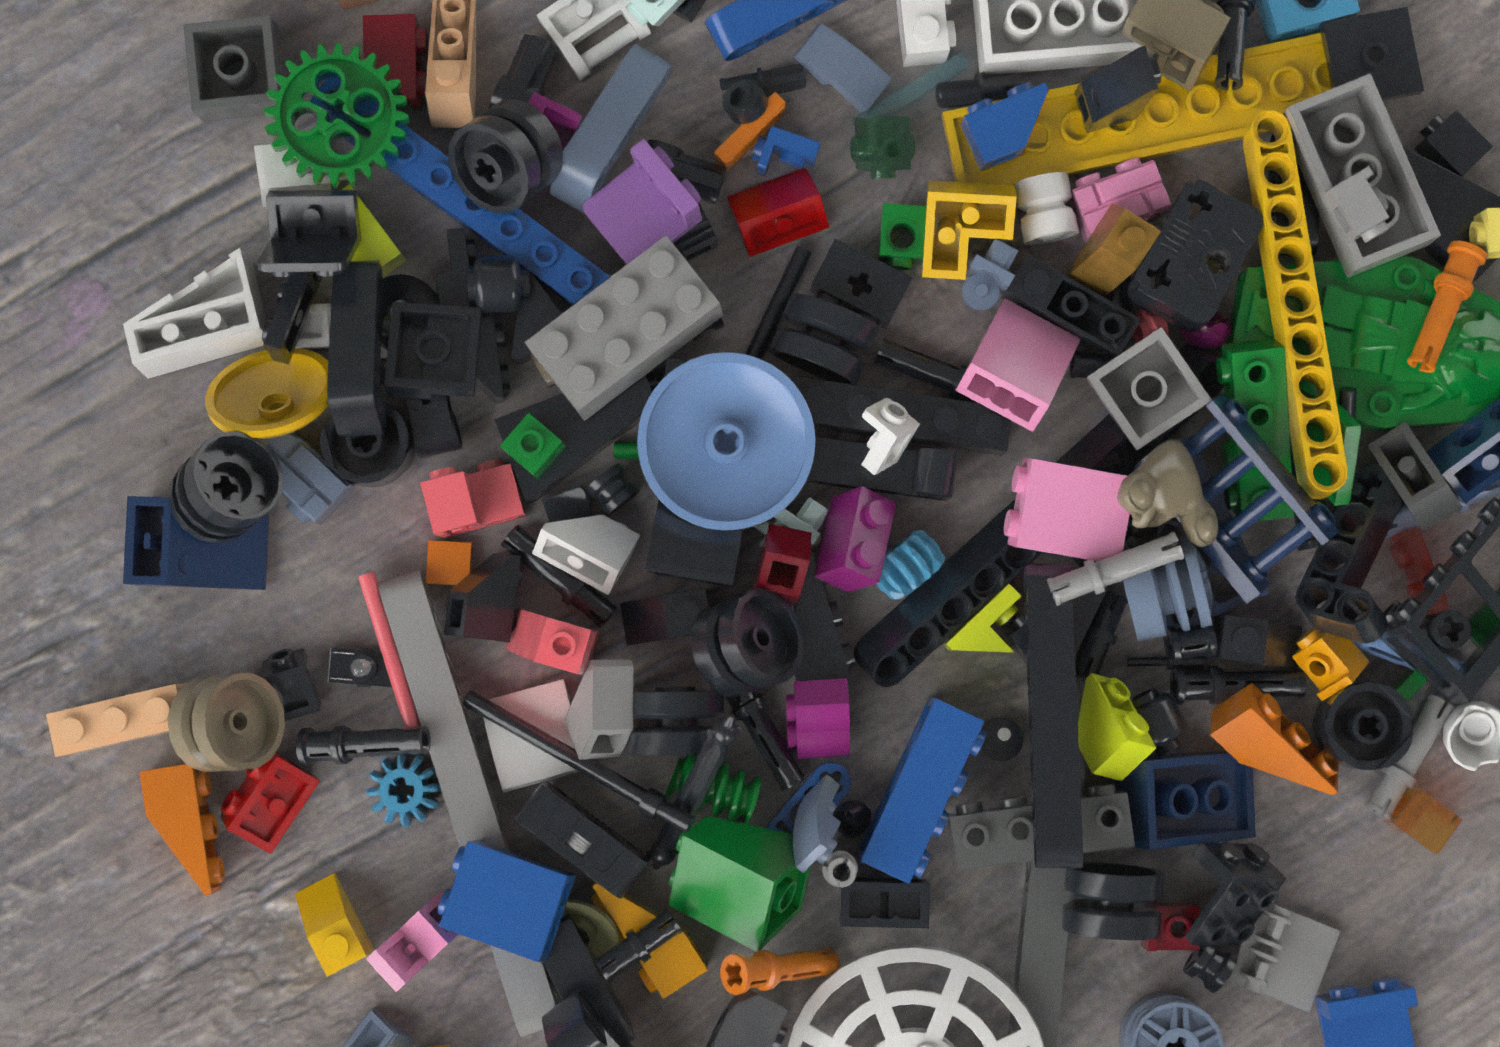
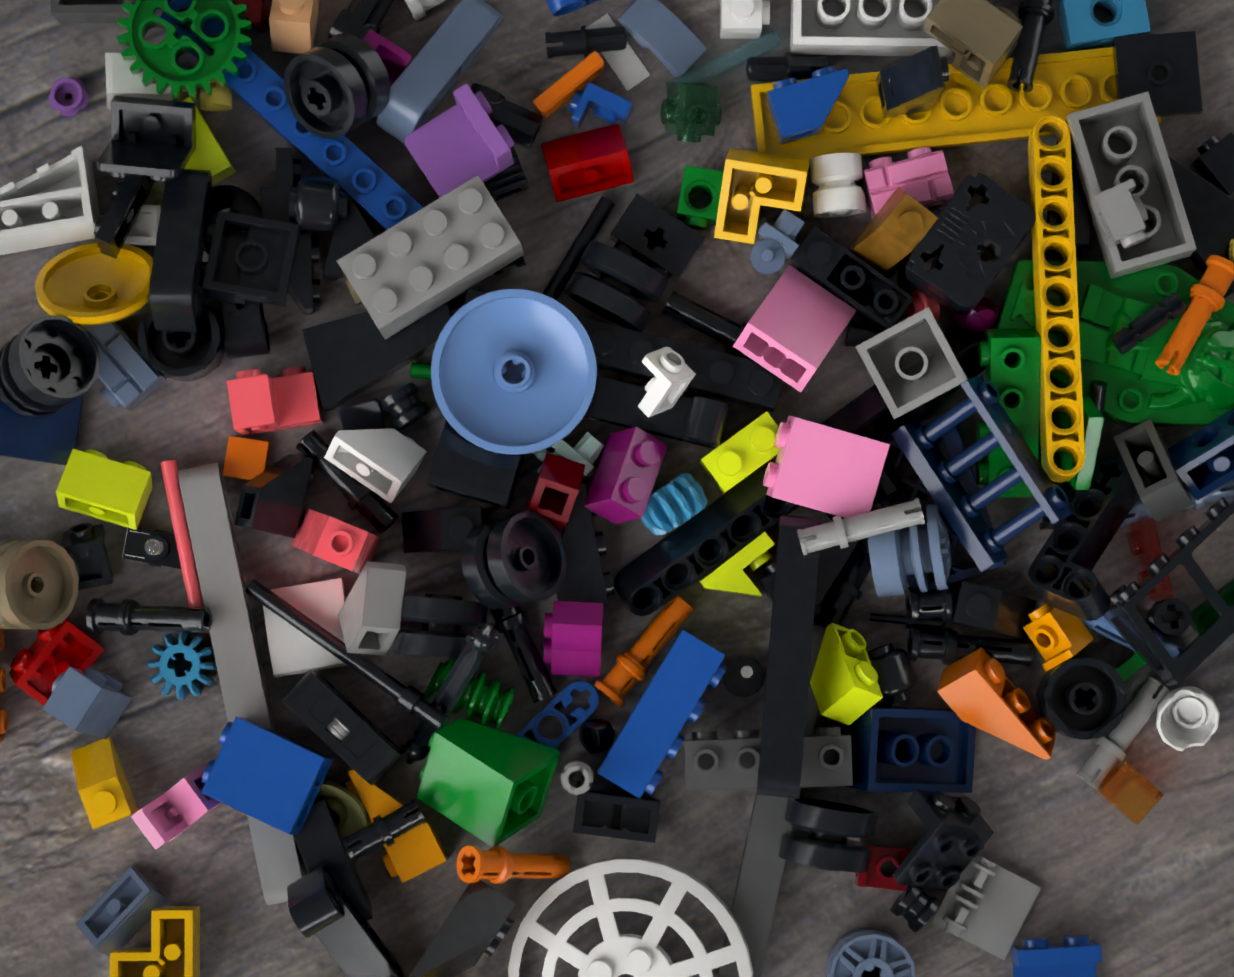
camera: 10 degrees right, 0 degrees up
(212, 190) = (61, 88): none -> medium lavender plate
(302, 610) = (104, 488): none -> neon yellow brick
(306, 840) = (87, 701): none -> sand blue brick
(380, 186) = (219, 100): none -> light yellow hinge
(533, 445) = (334, 357): green brick -> none
(745, 101) = (566, 57): black tile -> none
(803, 102) = (623, 62): none -> white sticker
(815, 825) = (560, 736): sand blue slope -> none
(883, 739) = (633, 664): none -> orange pin
(976, 503) = (742, 453): none -> neon yellow brick
(1167, 488) = (914, 457): dark tan head -> none
(1395, 320) = (1148, 323): none -> black axle

